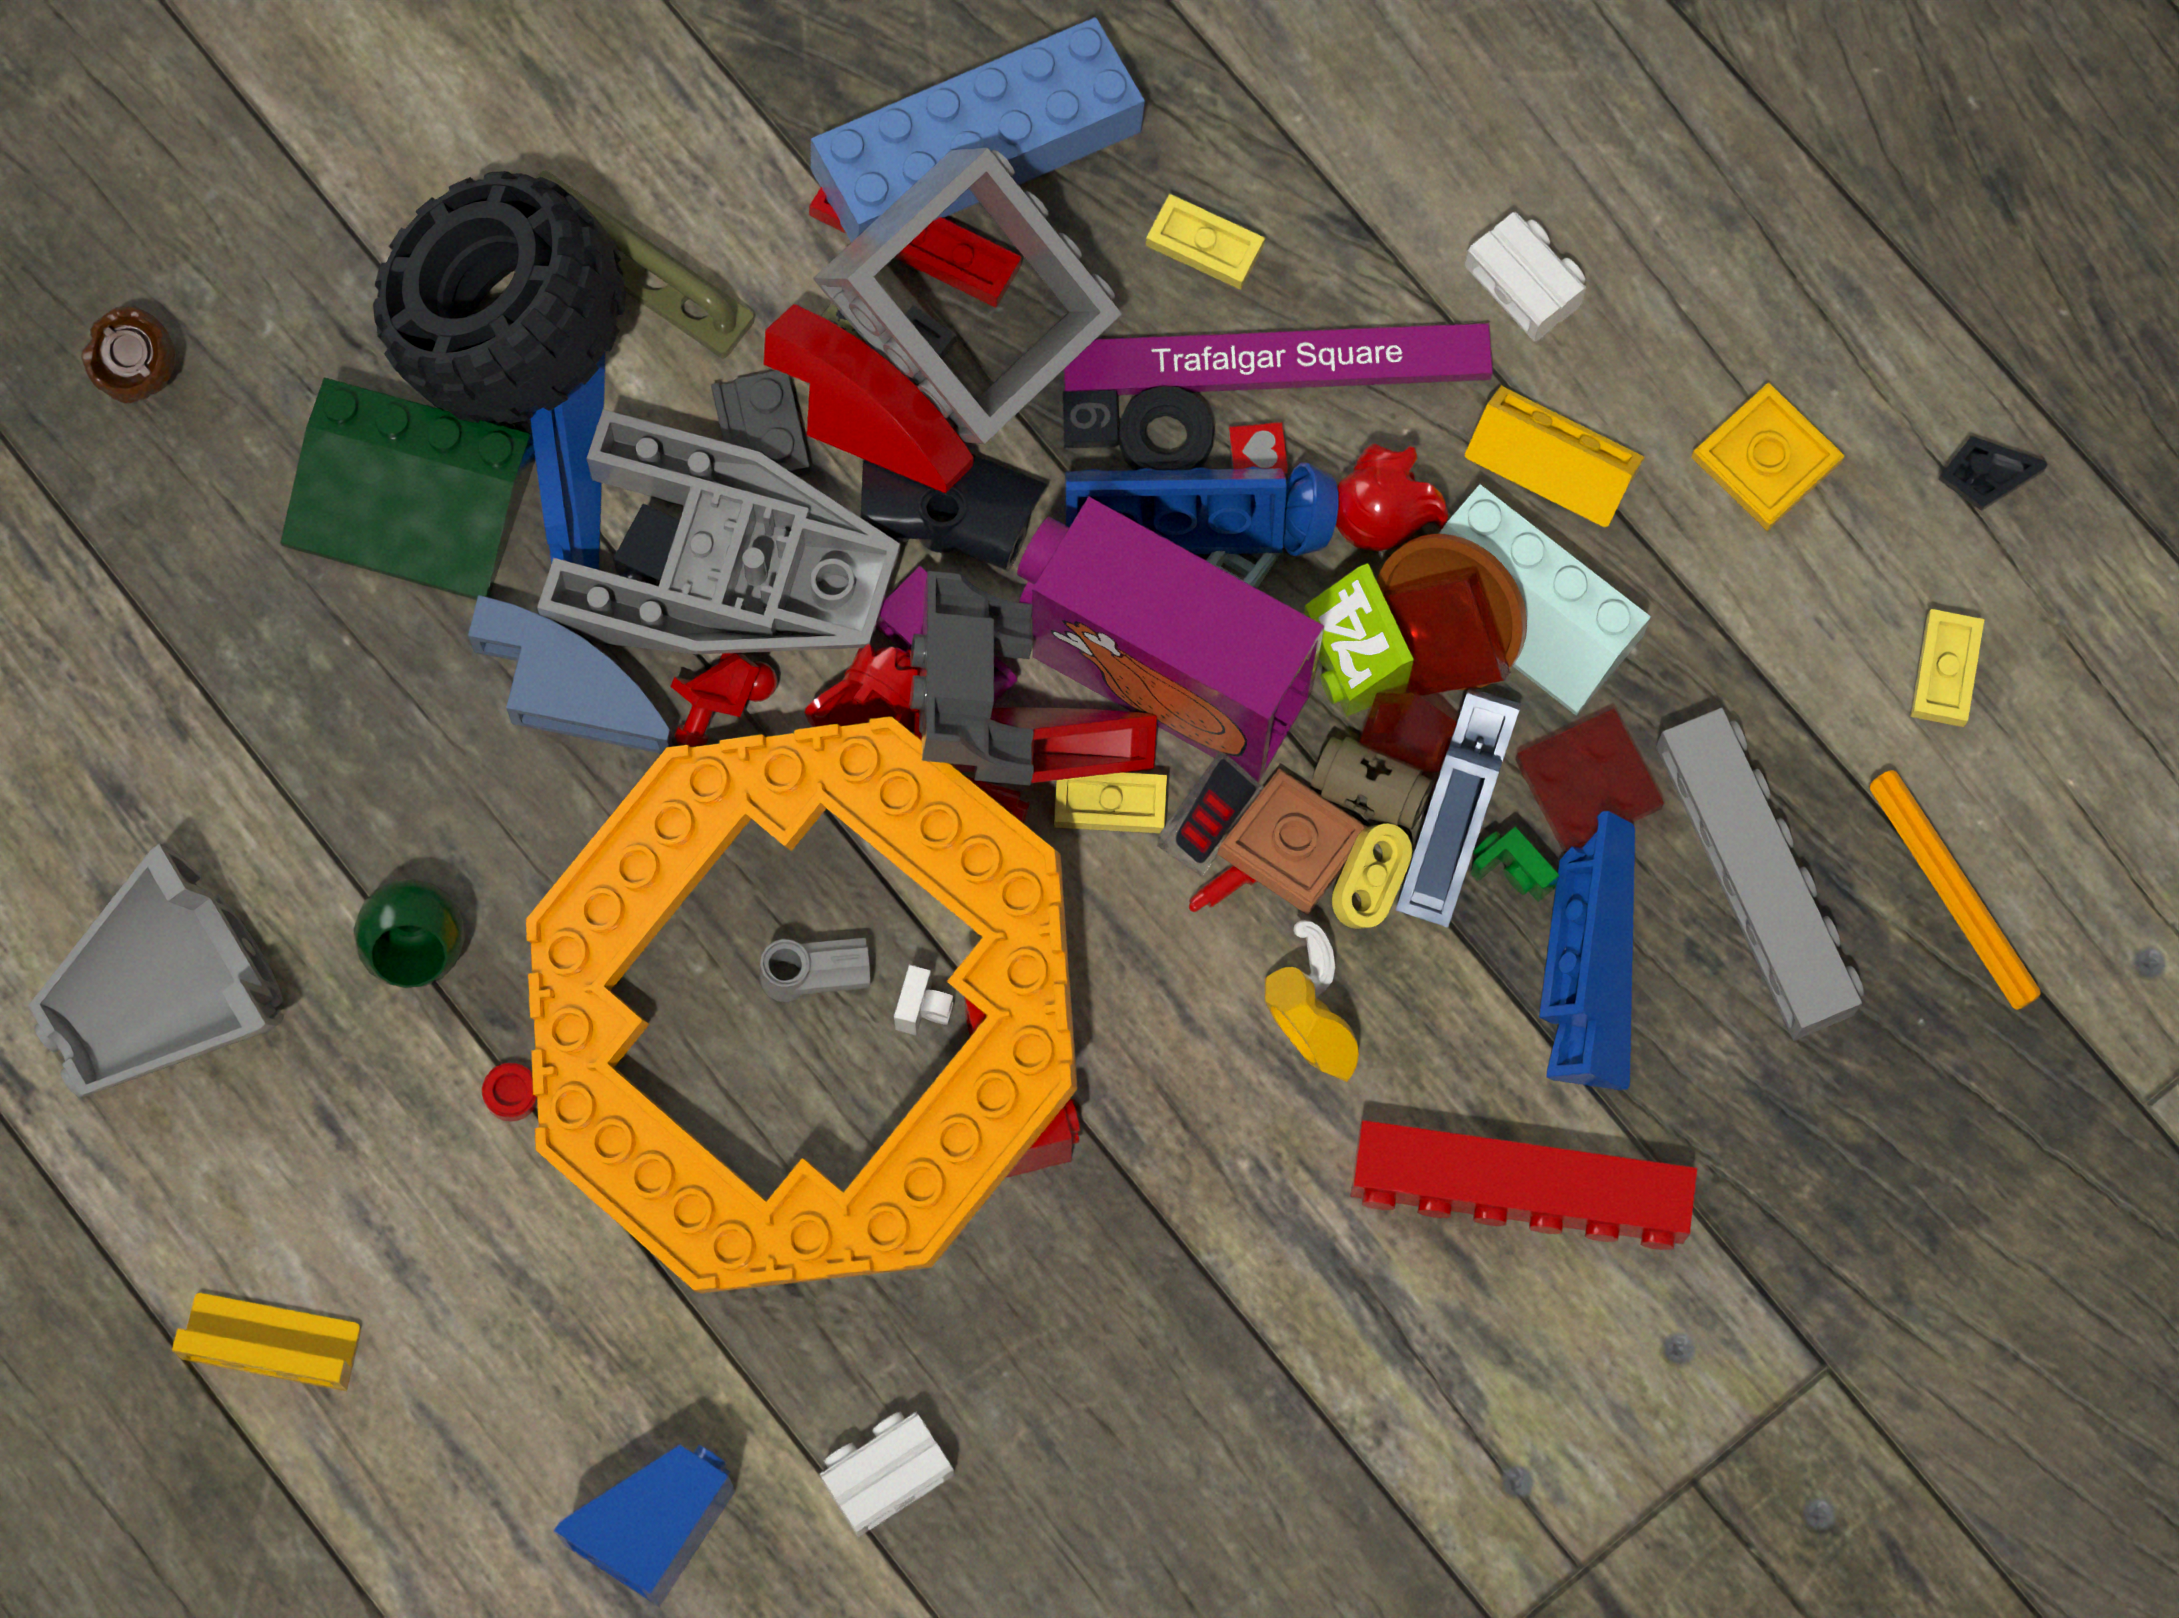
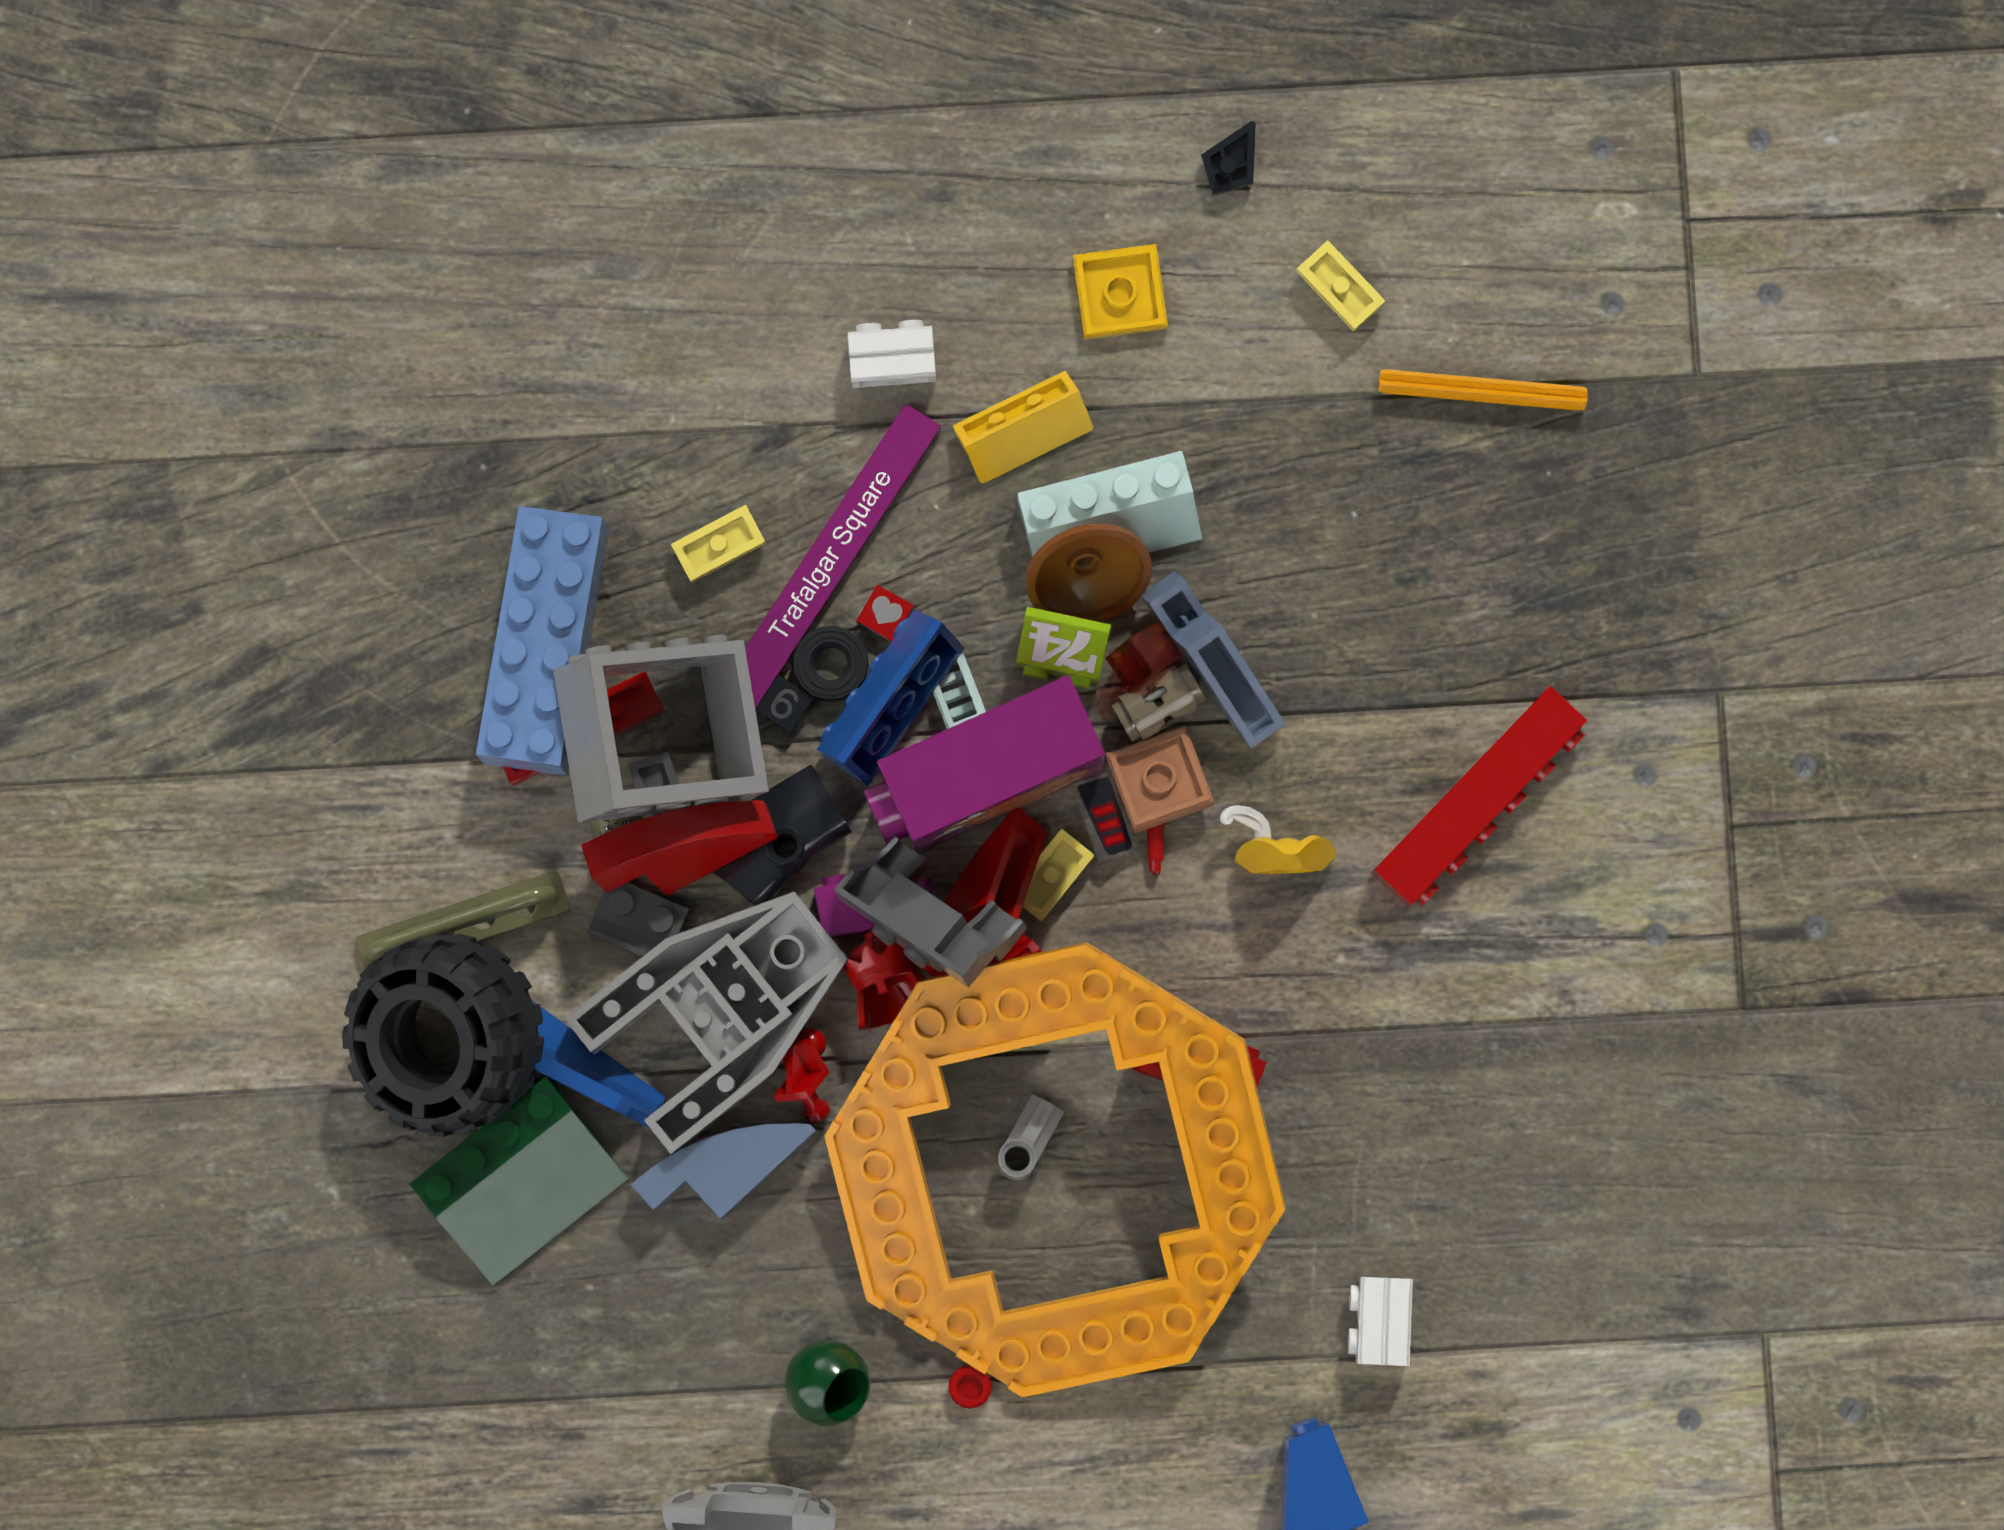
camera: 50 degrees left, 10 degrees up
(129, 354) = (294, 1298): reddish brown hair -> none
(646, 546) = (675, 1053): black brick -> none
(919, 1001) = (1097, 1090): white tile -> none
(1309, 510) = (954, 609): blue hat -> none
(1372, 880) = (1219, 746): light yellow plate -> none
(1383, 502) = (979, 564): red hair -> none
(1448, 635) = (1102, 587): clear red tile -> none
(1524, 864) = (1281, 647): green bracket -> none
(1588, 773) = (1251, 564): clear red plate -> none
(1592, 958) = (1367, 648): blue wedge -> none
(1759, 873) = (1389, 504): light grey brick -> none

